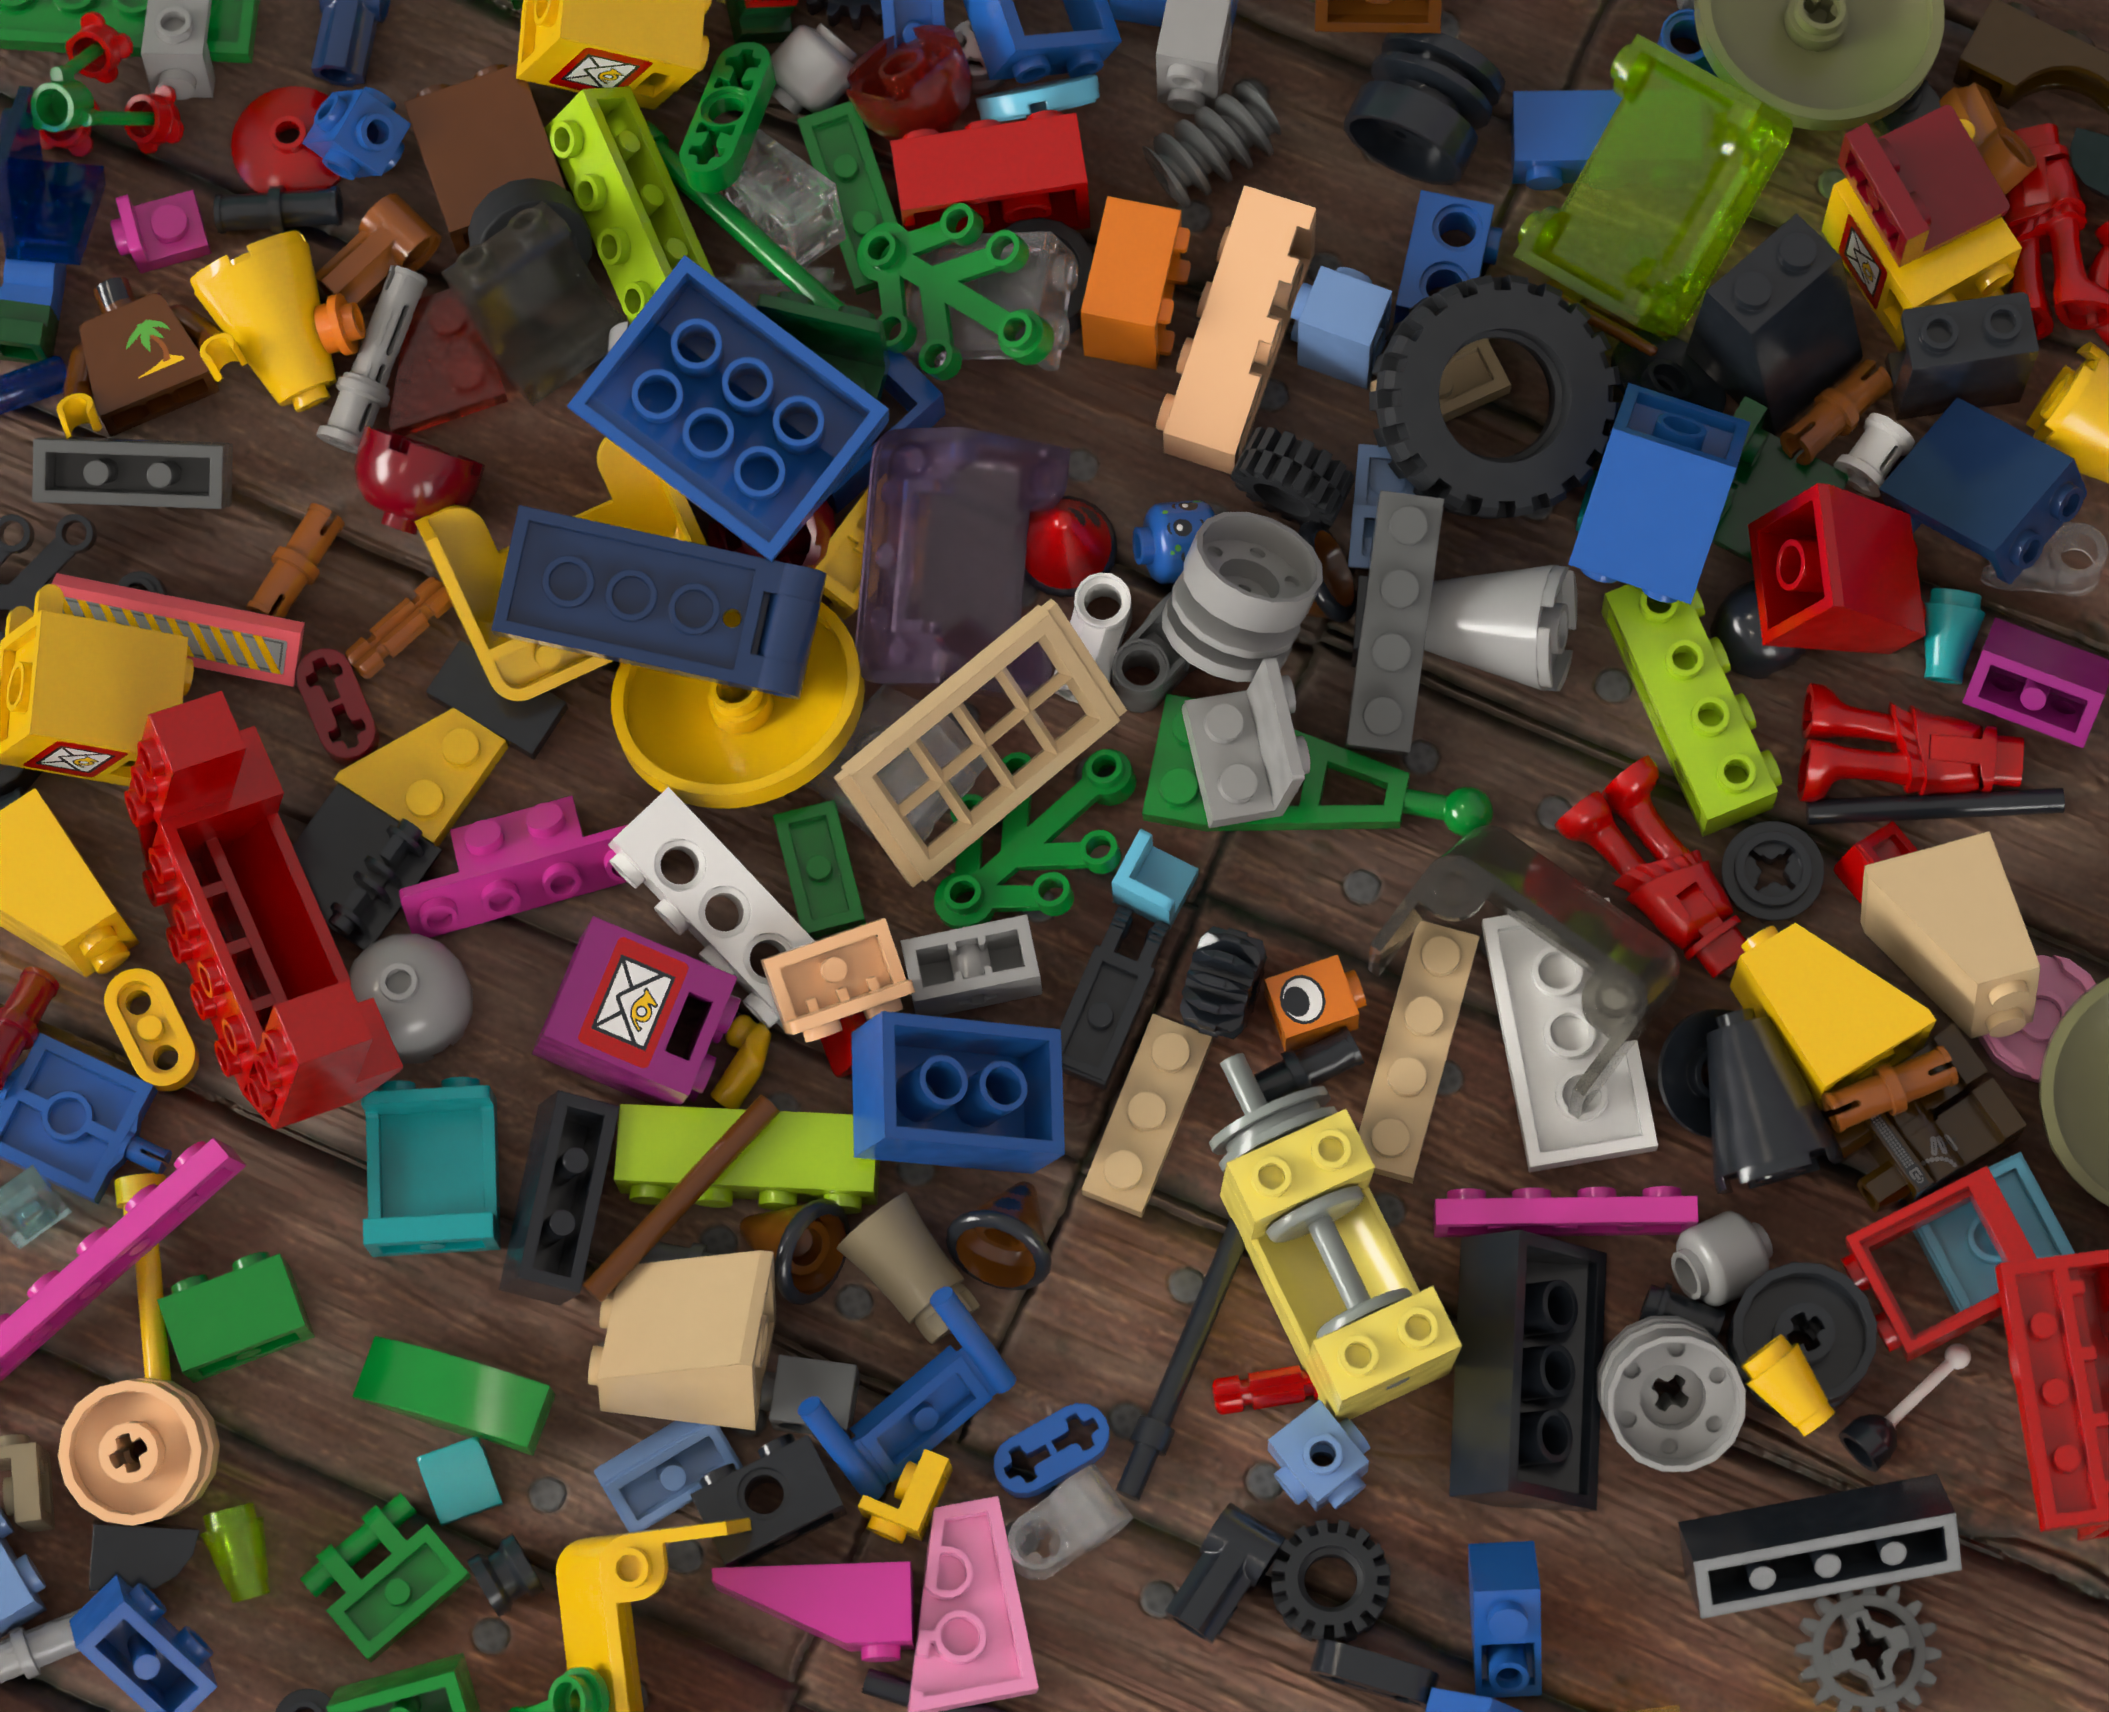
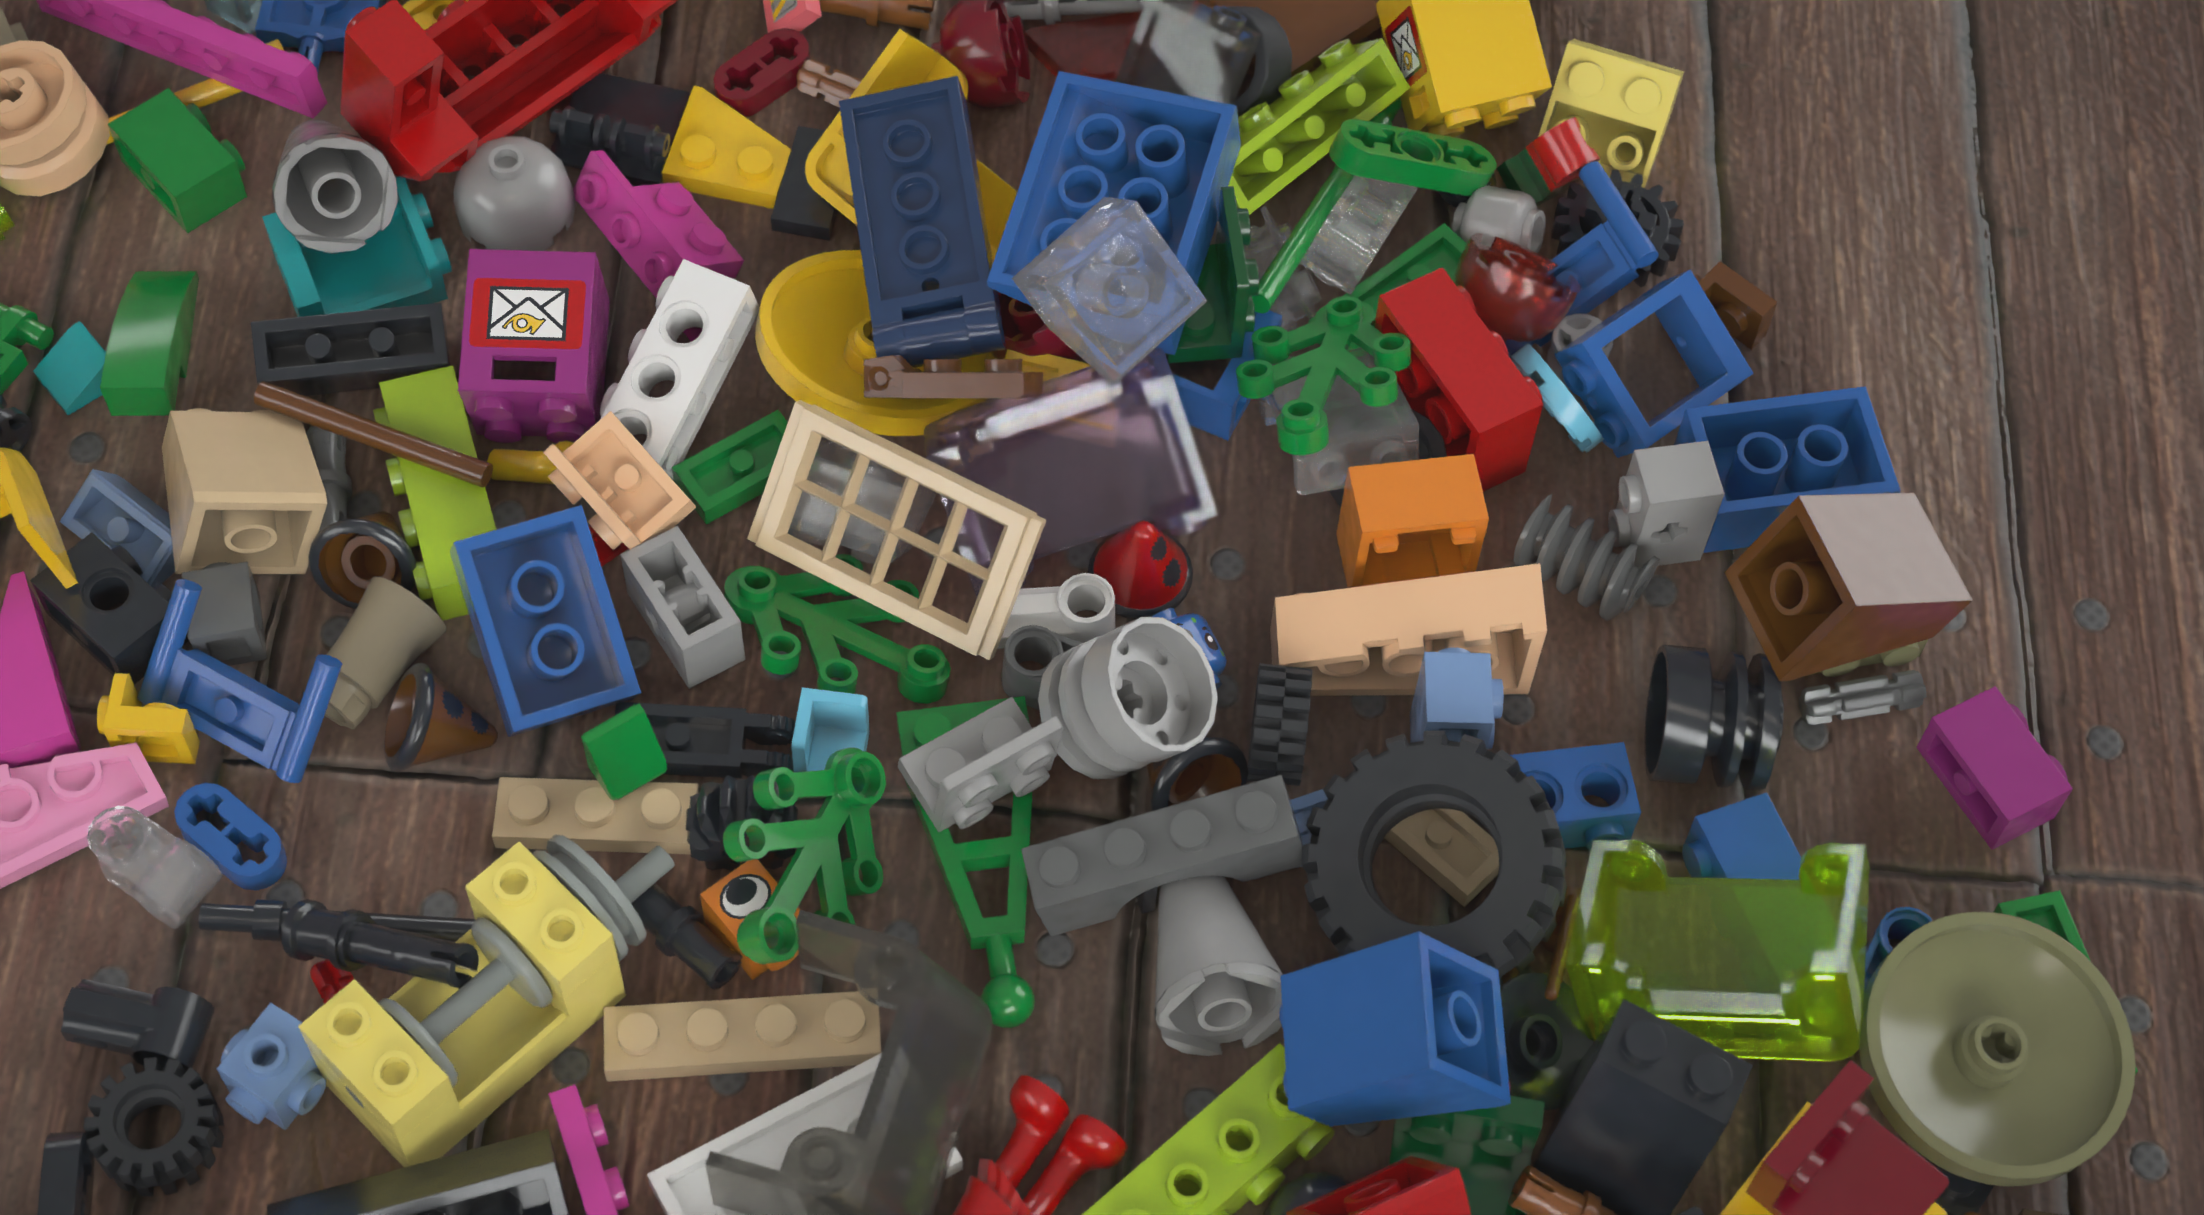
camera: 60 degrees right, 15 degrees down
(348, 1163) = (333, 188): none -> light grey cone
(847, 447) = (1110, 287): none -> clear slope
(853, 635) = (944, 378): none -> reddish brown hinge
(1118, 1064) = (624, 752): none -> green slope
(1225, 876) = (851, 786): none -> green plant
(1226, 1354) = (355, 940): none -> black pin

